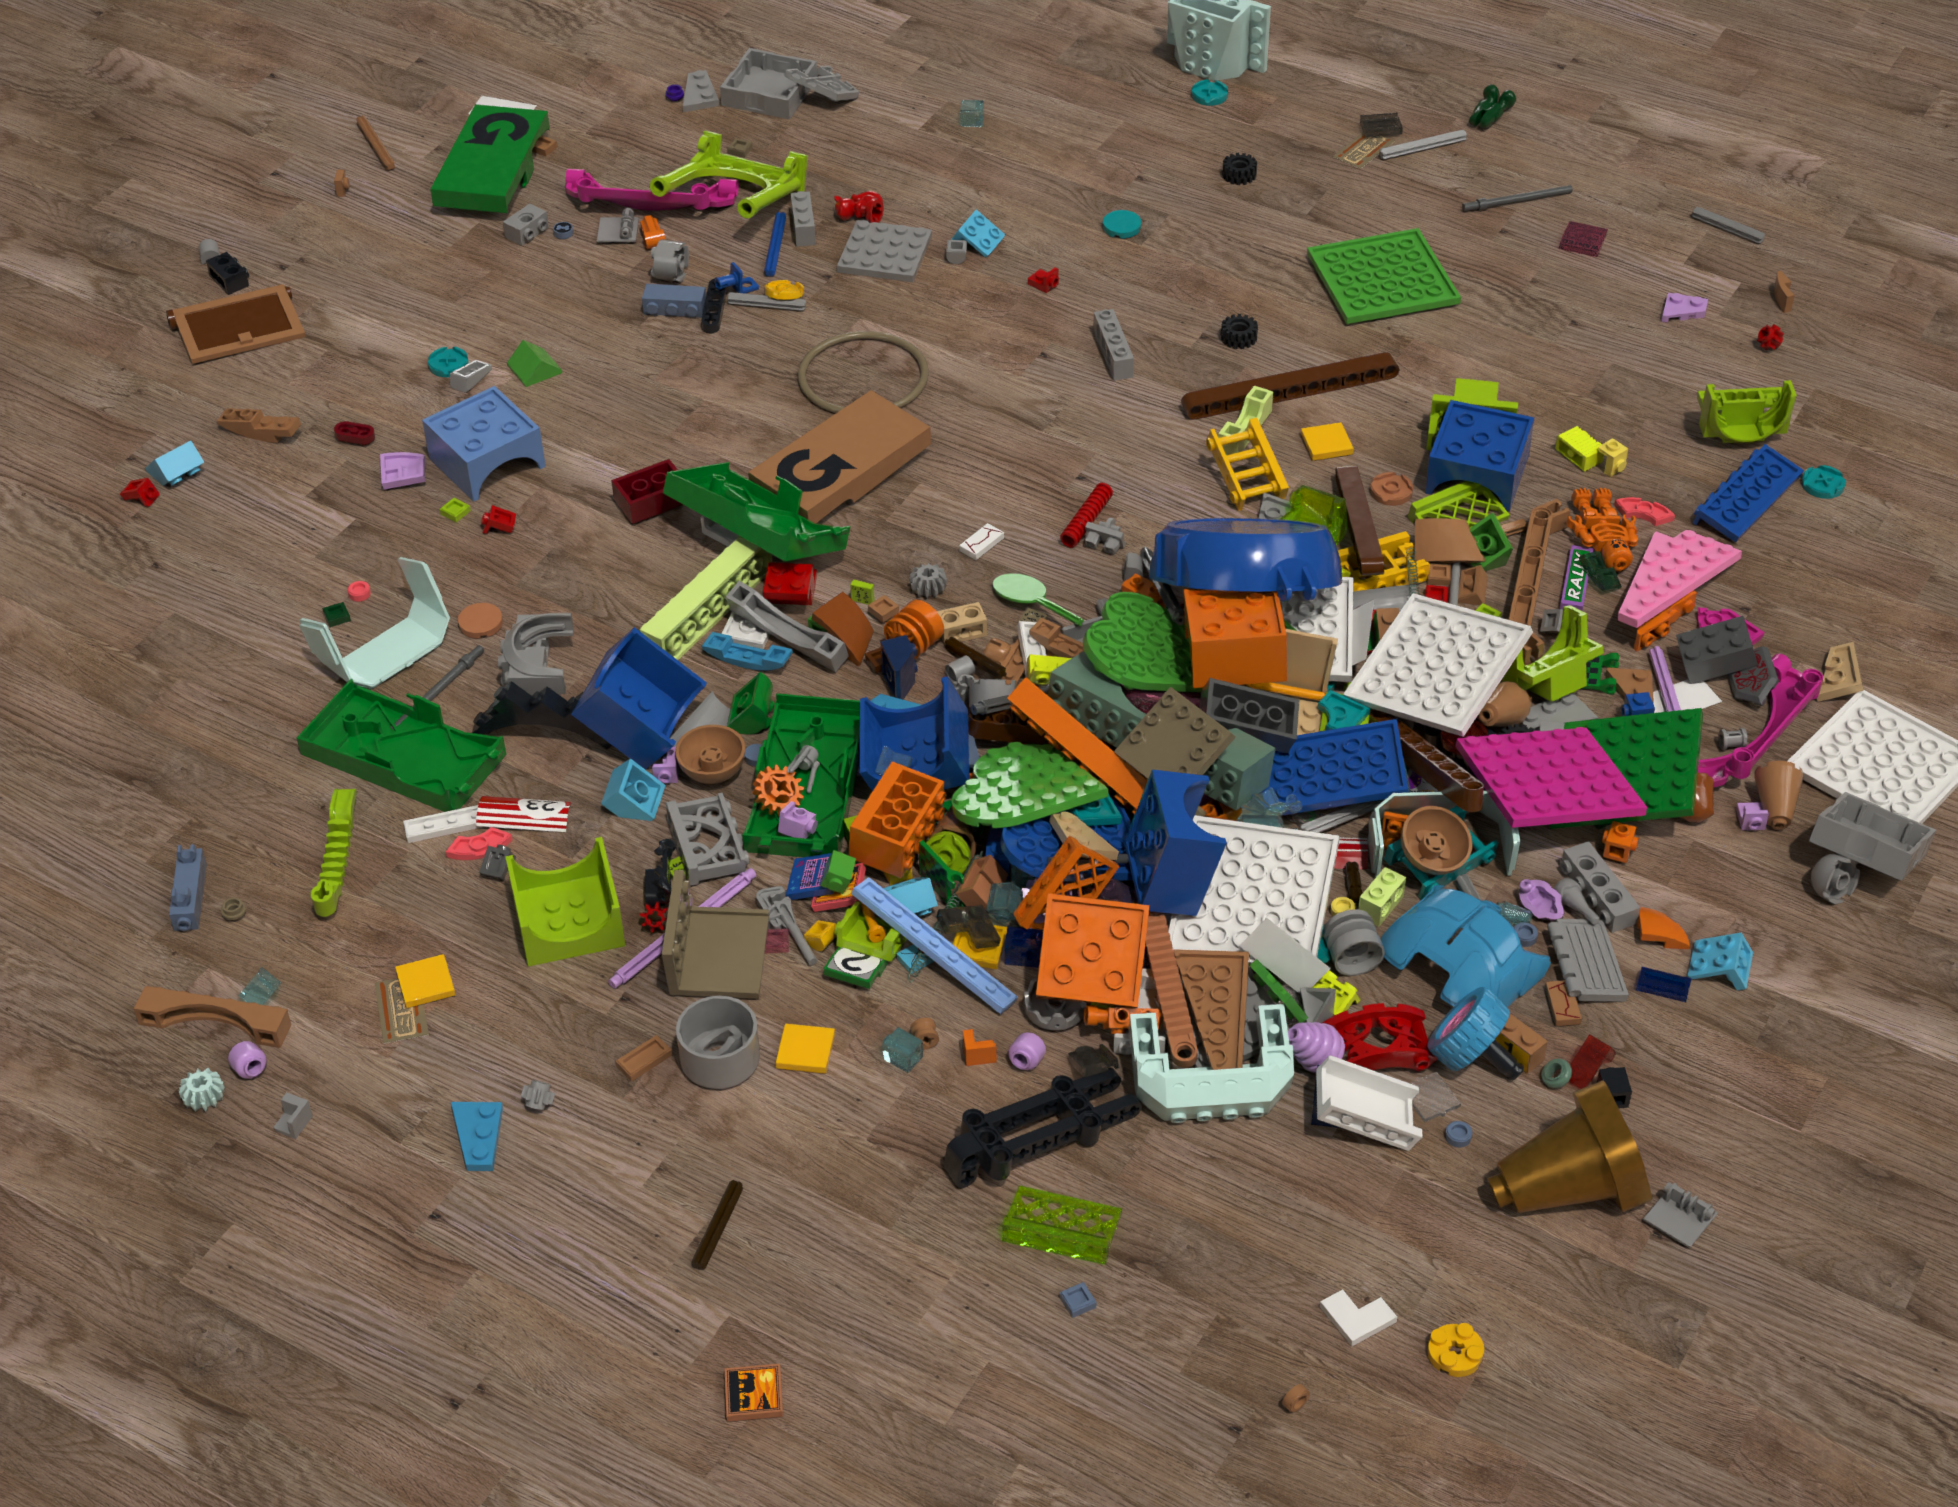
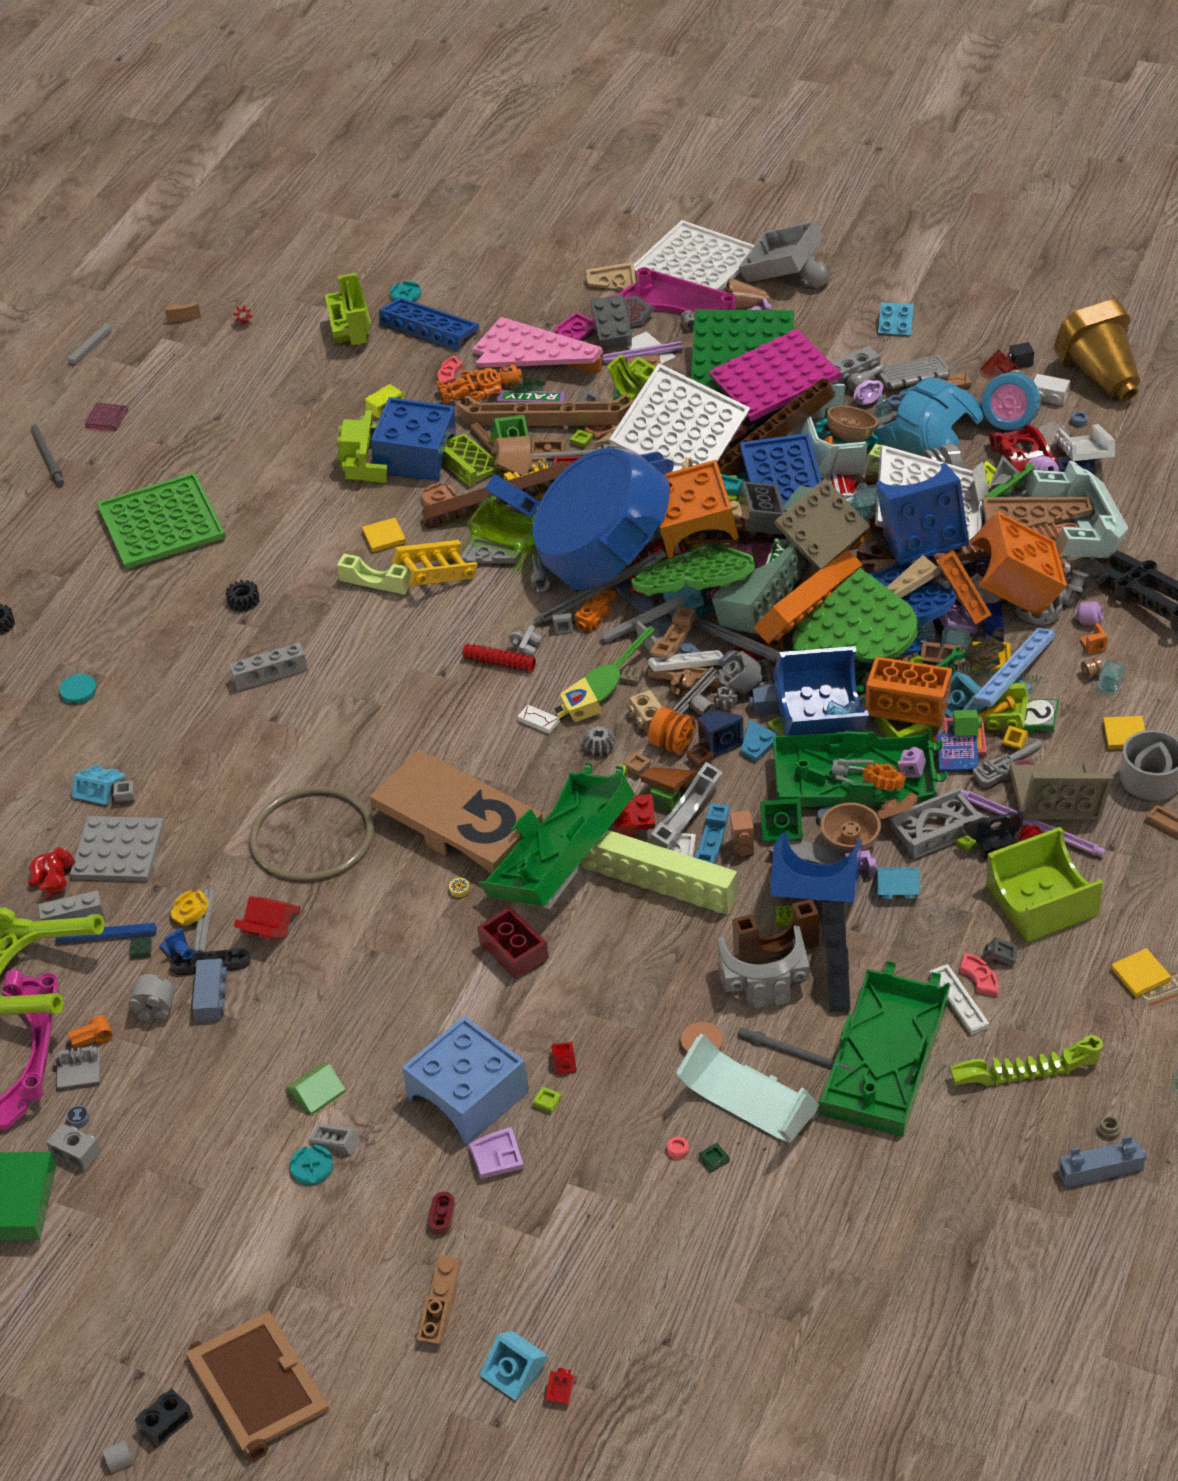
camera: 95 degrees left, 0 degrees up
(522, 814) = (934, 949): sticker -> none
(576, 656) = (753, 948): none -> reddish brown arch
(731, 797) = (892, 807): none -> nougat plate
(735, 666) = (742, 833): none -> nougat piece
(745, 332) = (266, 917): none -> red bracket
(748, 465) = (459, 887): none -> tile
(749, 264) = (141, 947): none -> dark green tile
(992, 568) = (579, 702): none -> light yellow torso
(1041, 666) = (704, 645): neon yellow bracket -> none
(1044, 280) = (167, 728): red bracket -> none
(1071, 1038) = (1075, 585): none -> light grey connector
(1292, 384) = (317, 559): reddish brown beam -> none
(1339, 516) = (512, 495): none -> blue slope
(1523, 1106) = (1052, 389): none -> white brick
(1616, 456) = (398, 380): light yellow bracket -> none
(1637, 704) = (674, 358): blue brick -> none
(1659, 927) = (877, 343): orange brick -> none
(1663, 984) = (921, 343): clear blue tile -> none
(1684, 307) = (198, 363): lavender wing -> none

